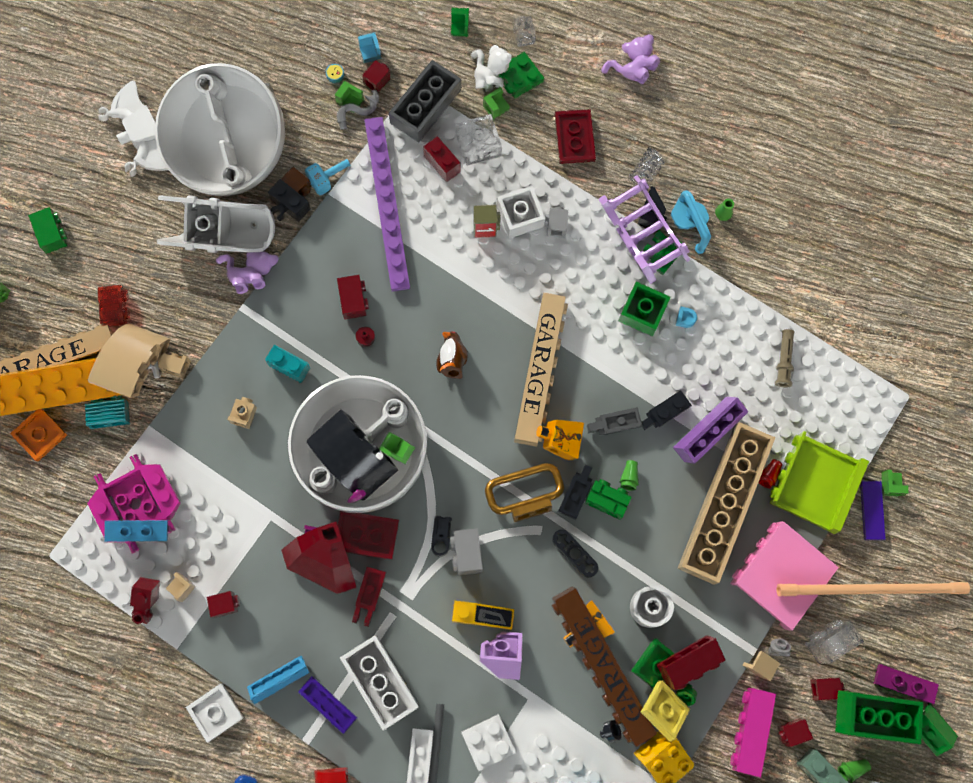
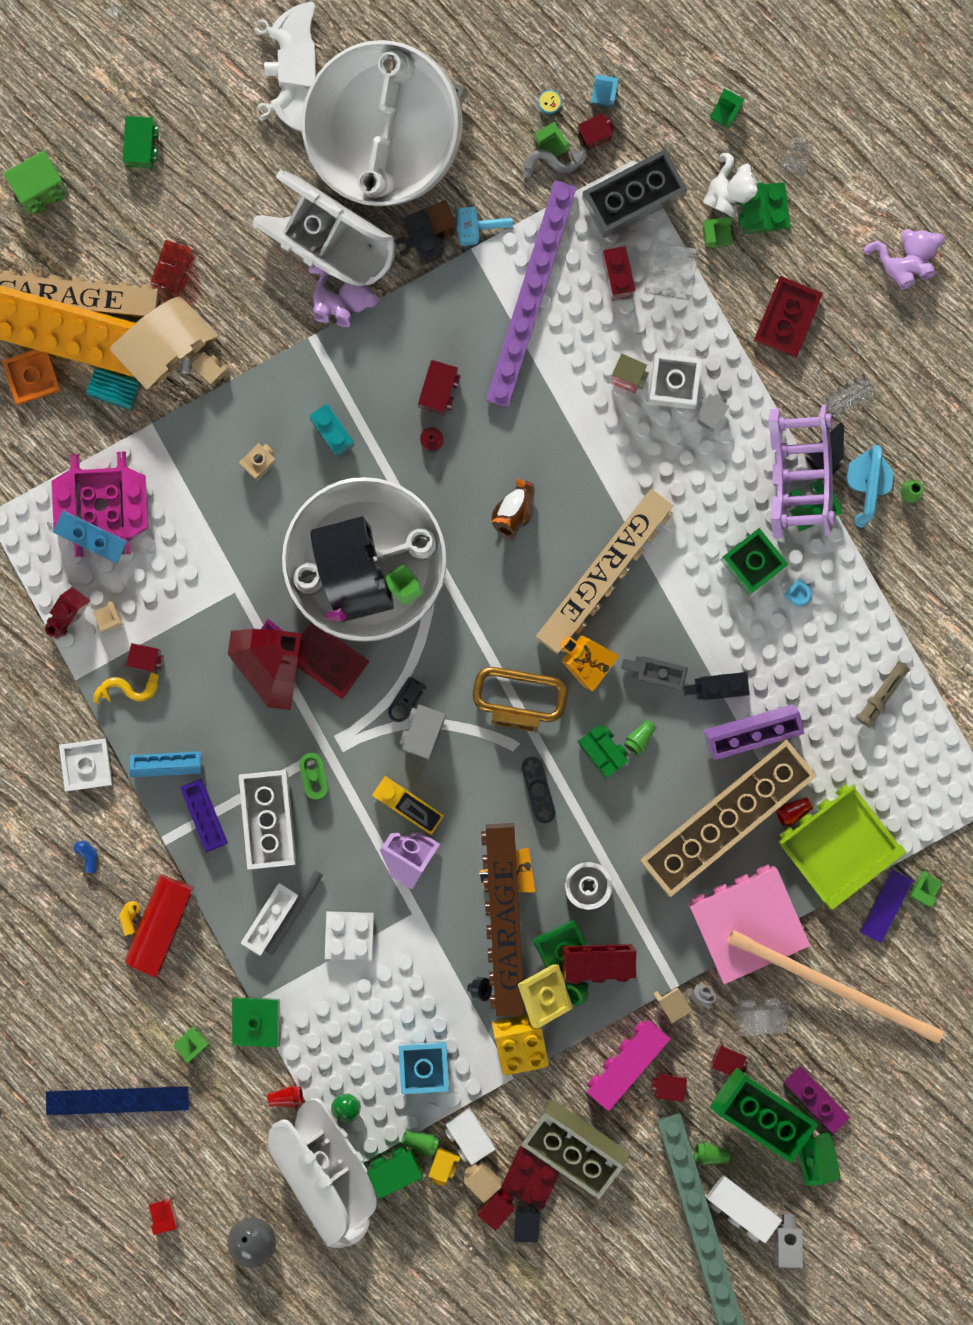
camera: 30 degrees right, 10 degrees up
(239, 628) = (148, 692): none -> yellow animal
(369, 594) = (300, 723): dark red hinge -> none
(399, 629) = (313, 776): none -> bright green plate
(576, 493) = (573, 727): black hinge -> none

